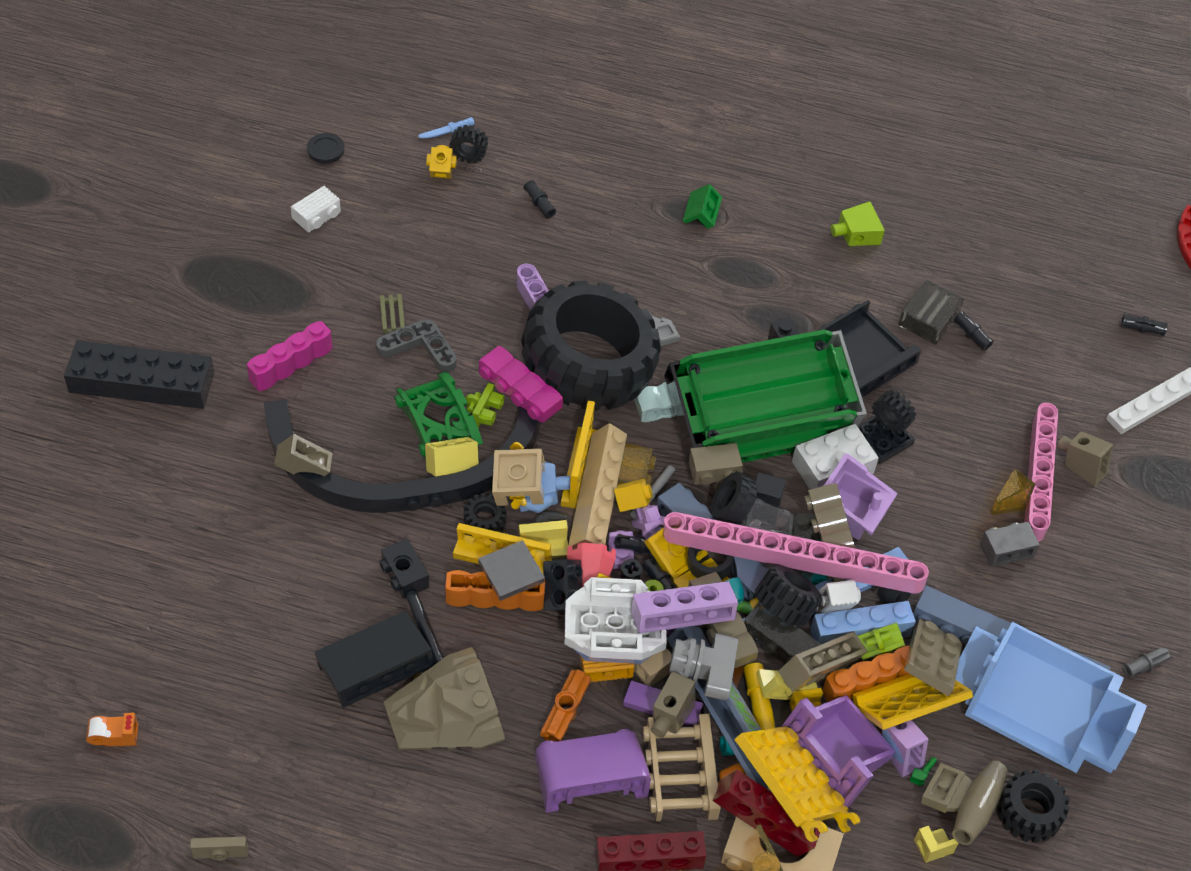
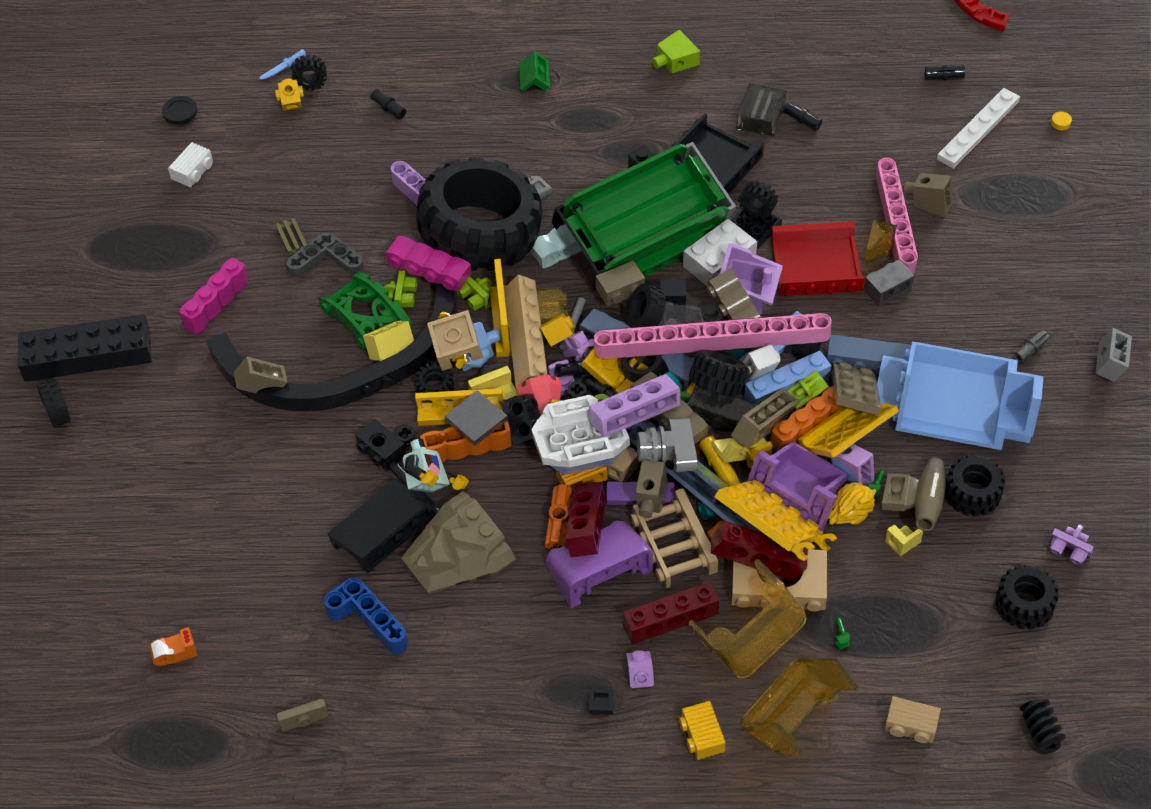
camera: 10 degrees left, 0 degrees up
(85, 425) = (53, 403): none -> black tyre
(330, 758) = (371, 617): none -> blue beam
(429, 562) = (405, 429): none -> black bush
(440, 613) = (426, 472): none -> torso
(565, 427) = (479, 290): none -> lime hips
(591, 719) = (585, 520): none -> dark red brick
(889, 787) = (852, 504): none -> yellow hair
(939, 495) = (817, 258): none -> red panel

